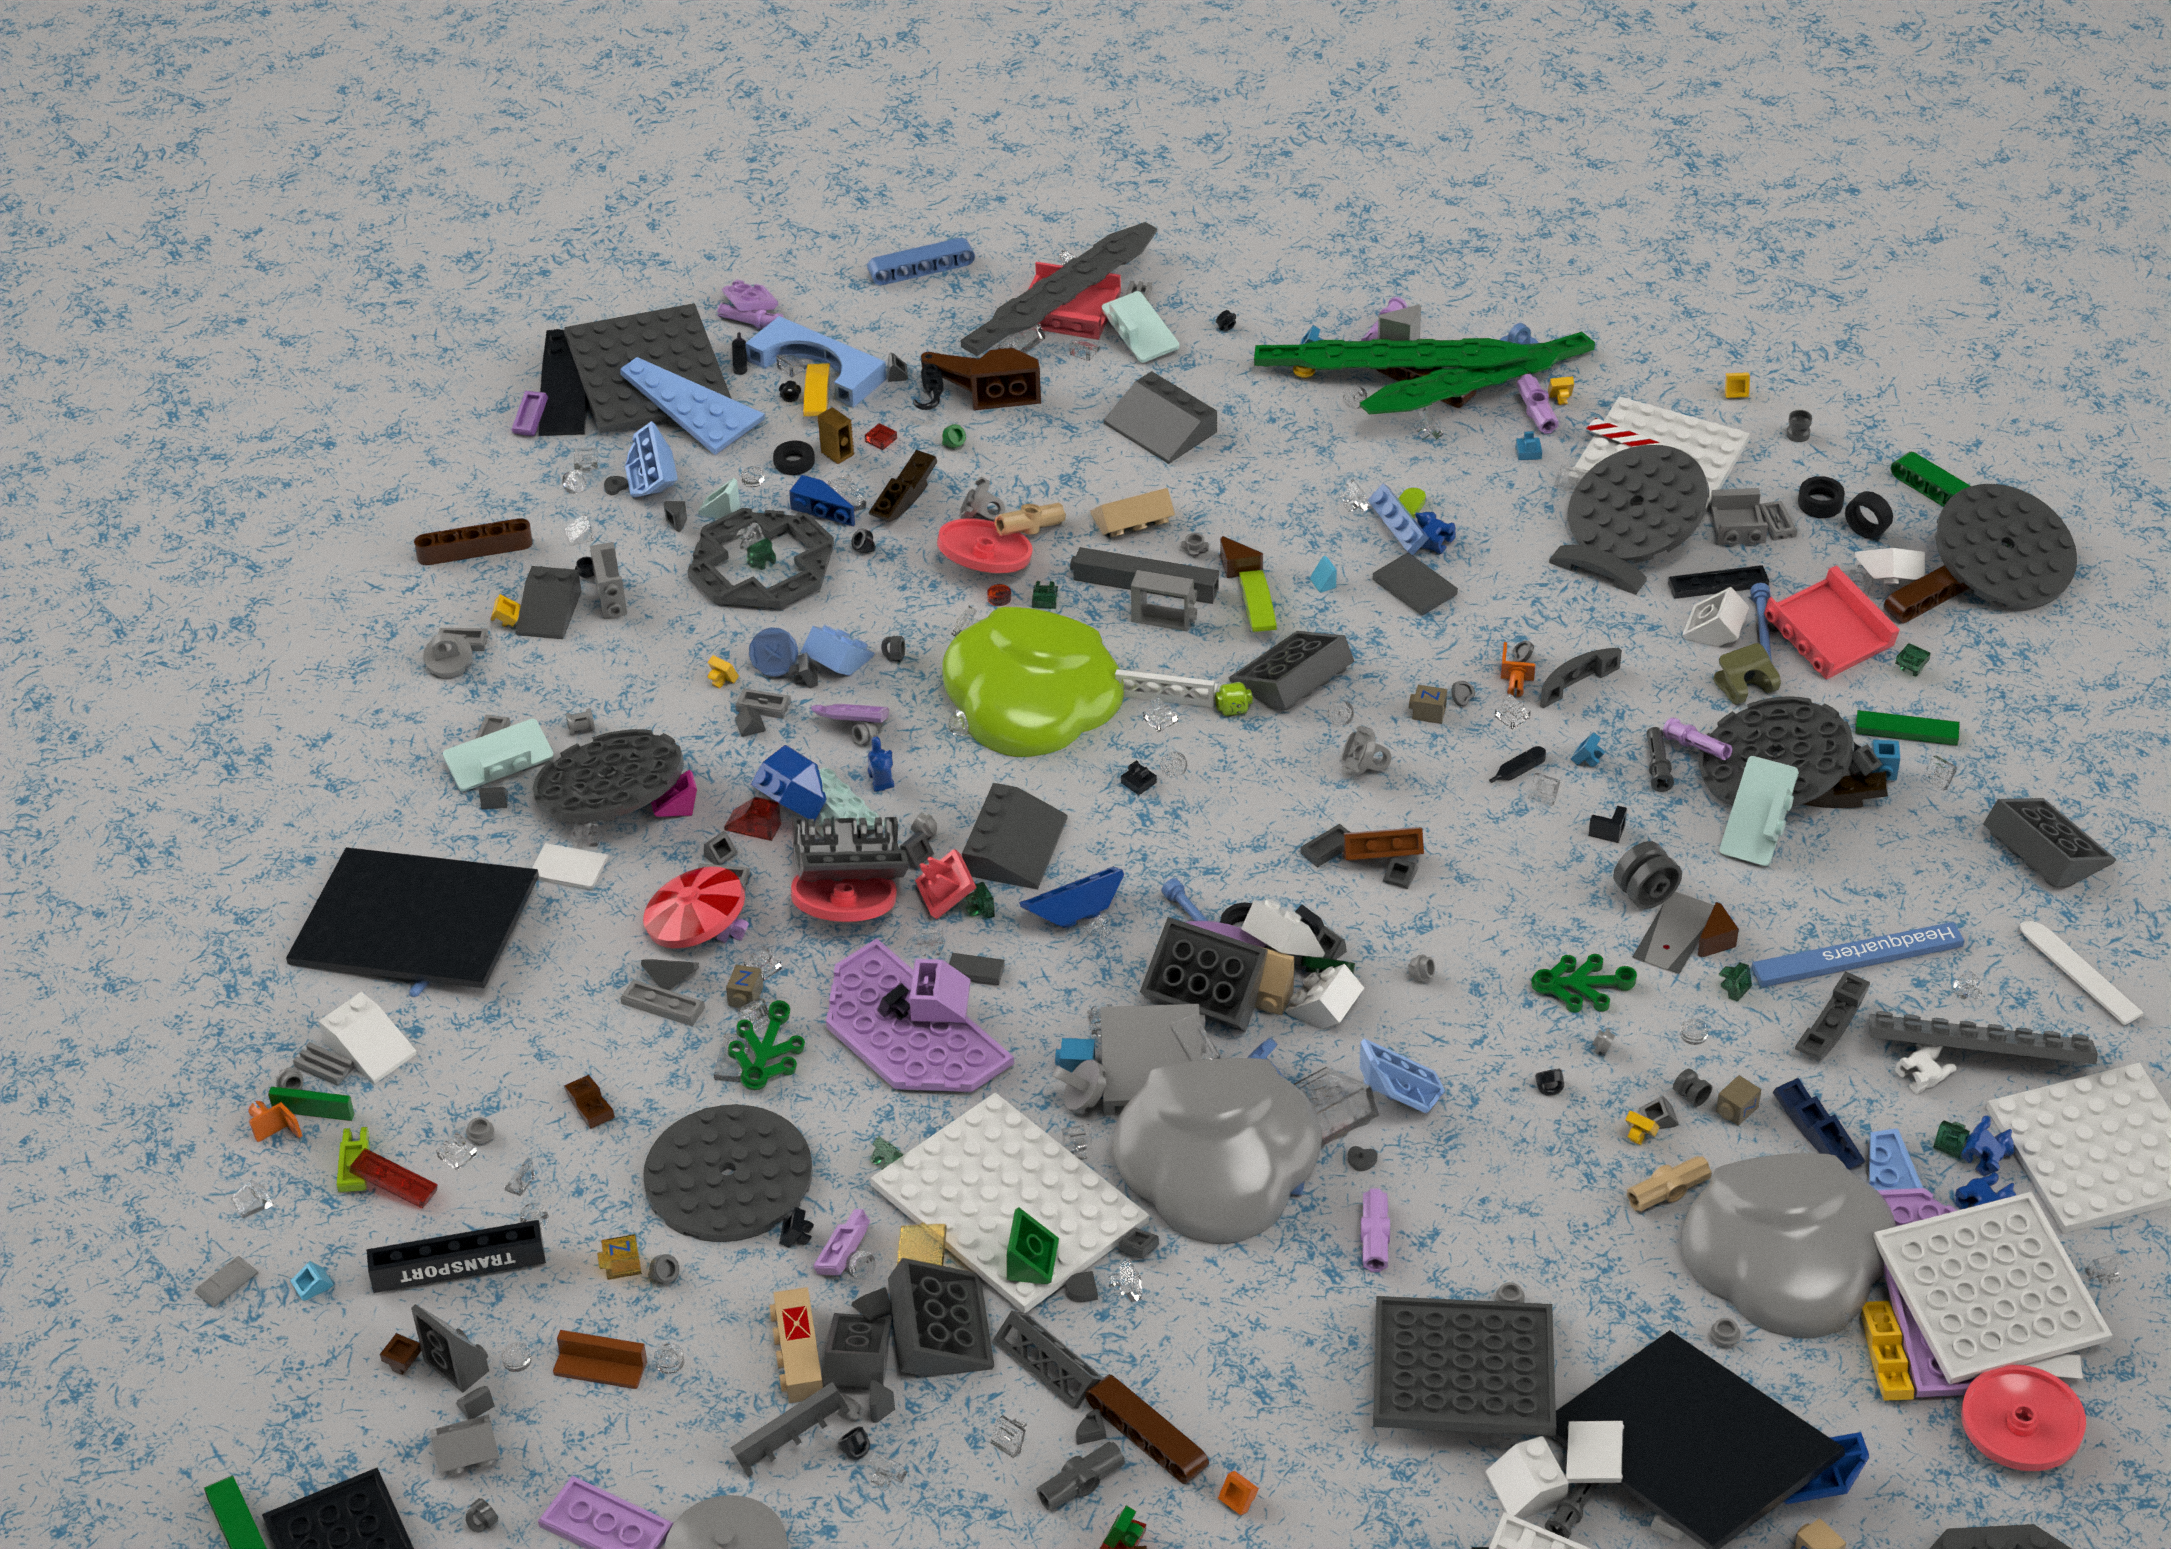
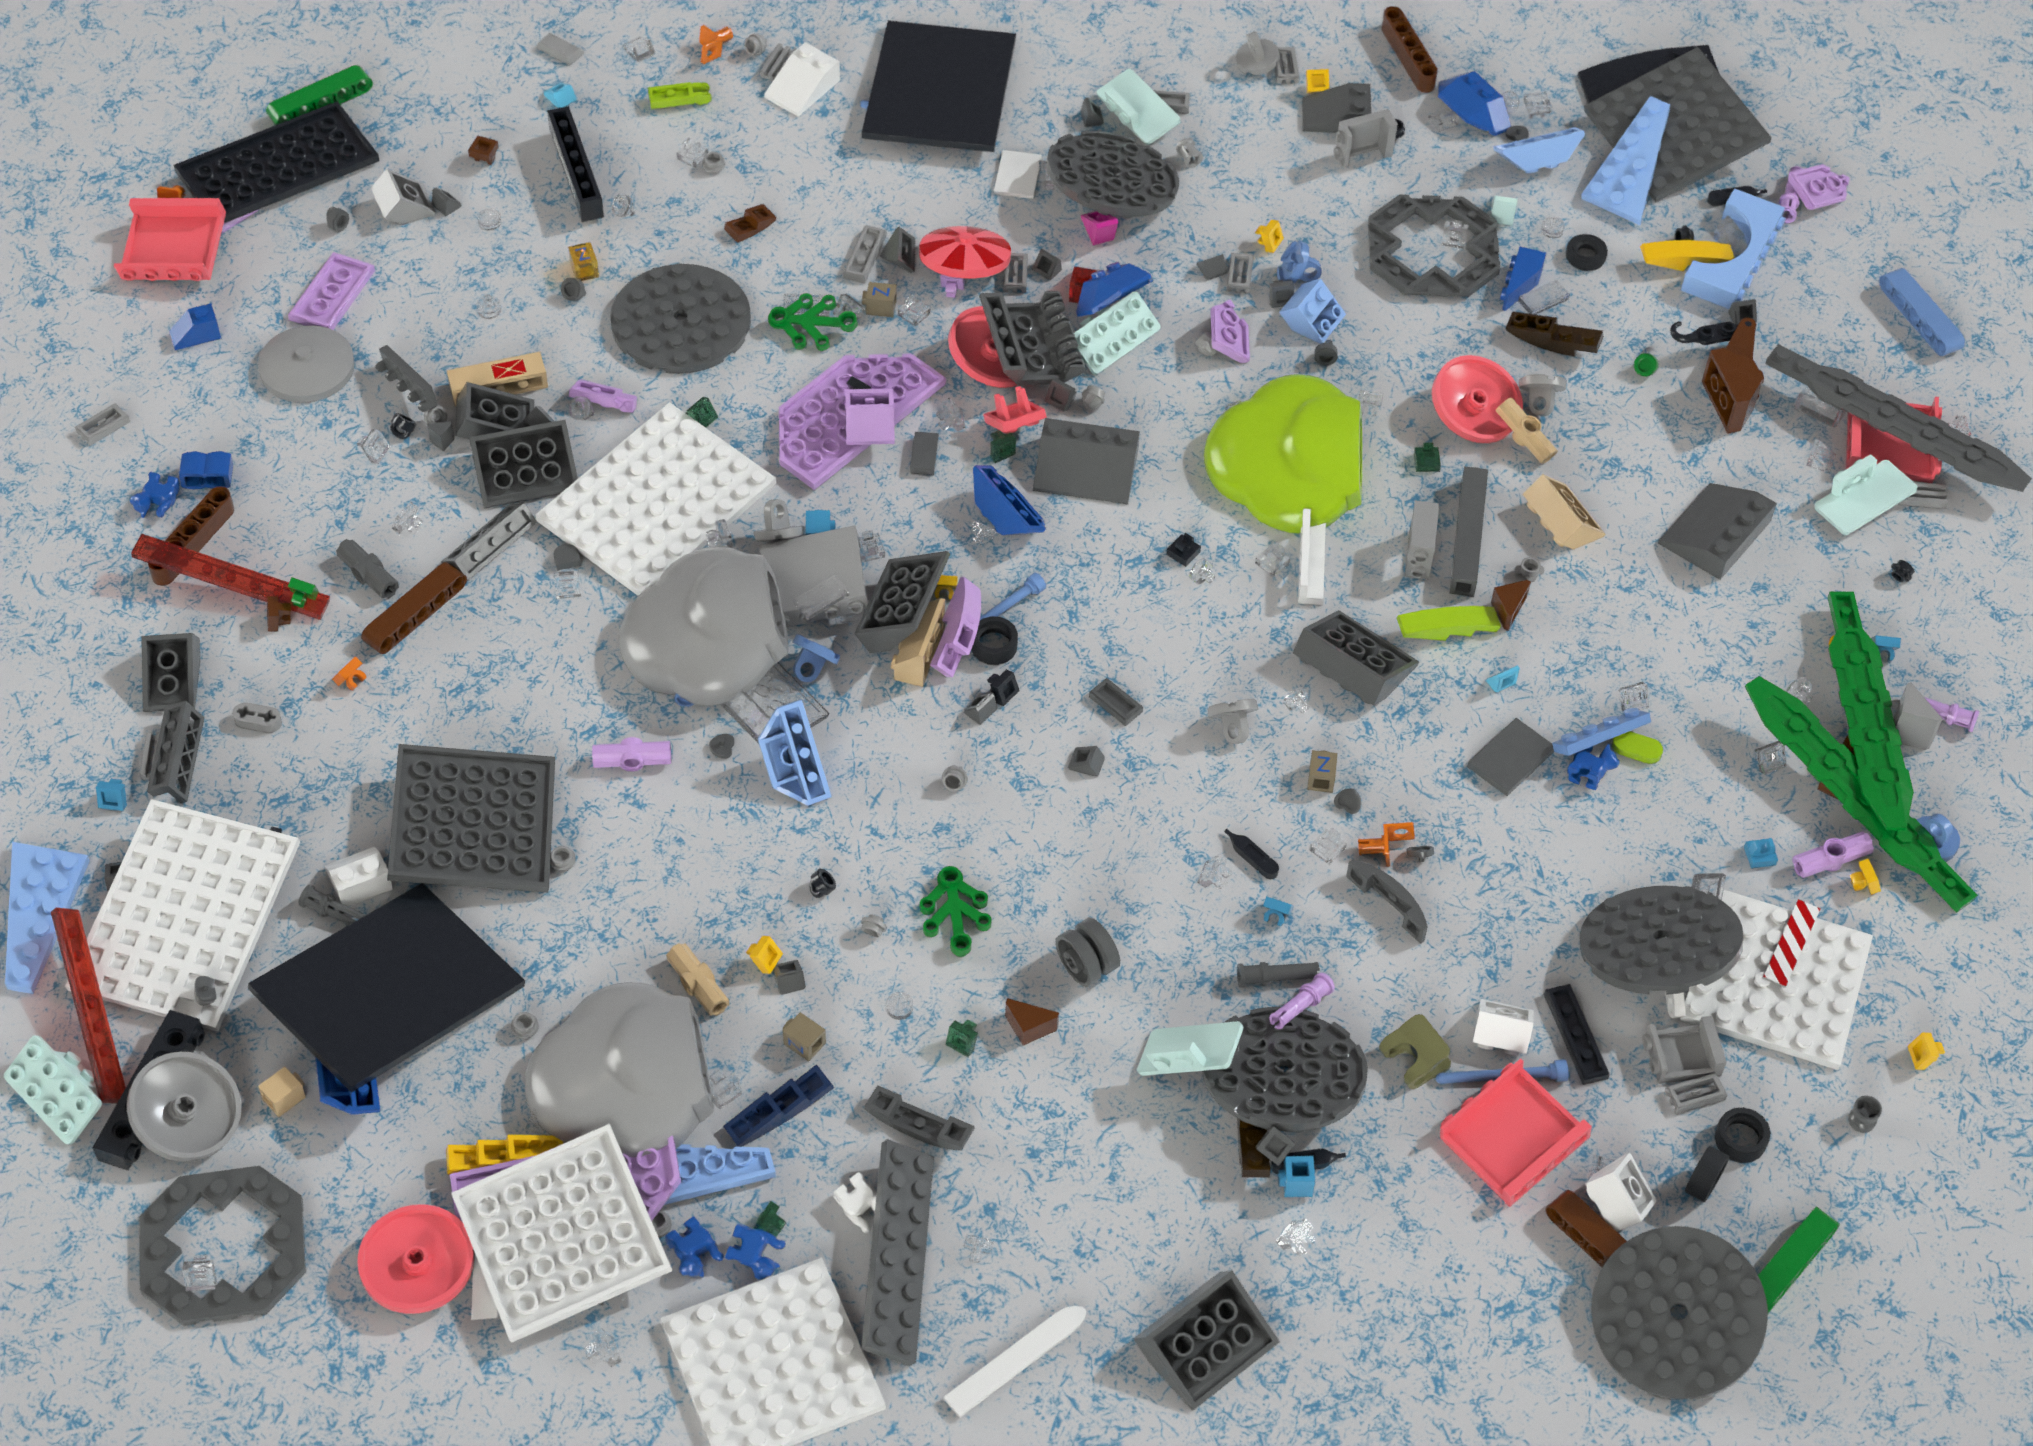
camera: 80 degrees right, 10 degrees up
(313, 1103) = (731, 60): green tile -> none
(393, 1178) = (656, 118): clear red tile -> none
(449, 1350) = (478, 166): dark grey slope -> none
(521, 1179) = (664, 193): clear slope -> none
(529, 413) = (1595, 57): medium lavender tile -> none
(564, 502) = (1475, 102): none -> blue wedge
(600, 1359) = (483, 266): dark orange panel -> none
(675, 514) = (1477, 177): dark grey slope -> none
(760, 553) = (1436, 241): clear green tile -> none
(794, 1228) = (617, 361): black tile -> none
(835, 435) = (1611, 270): pearl gold brick -> none
(863, 541) = (1472, 312): black tile -> none
(880, 436) = (1636, 313): clear red tile -> none
(880, 766) = (1158, 355): blue animal -> none
(923, 1243) = (596, 444): clear yellow piece -> none
(999, 595) = (1422, 425): clear red tile -> none
(1030, 1250) = (581, 502): green slope -> none
(1091, 1428) = (417, 572): dark grey tile -> none
(1138, 1243) = (612, 589): dark grey tile -> none
(1233, 699) = (1301, 611): lime head -> none
(1281, 929) = (964, 655): white slope -> none
(1316, 964) = (951, 704): dark green plate -> none
(1325, 997) = (906, 703): white slope -> none
(1383, 843) = (1106, 736): dark orange panel -> none
(1594, 1452) = (375, 913): white piece -> none
(1601, 562) = (1572, 921): dark grey slope -> none
(1608, 828) = (1172, 930): black panel -> none
(1674, 932) = (1037, 988): light grey sticker -> none
(1692, 1087) = (818, 998): dark grey wheel -> none
(1857, 954) = (1019, 1153): medium blue tile -> none
(1907, 727) = (1370, 1211): green tile -> none
(1913, 659) = (1472, 1213): clear green tile -> none

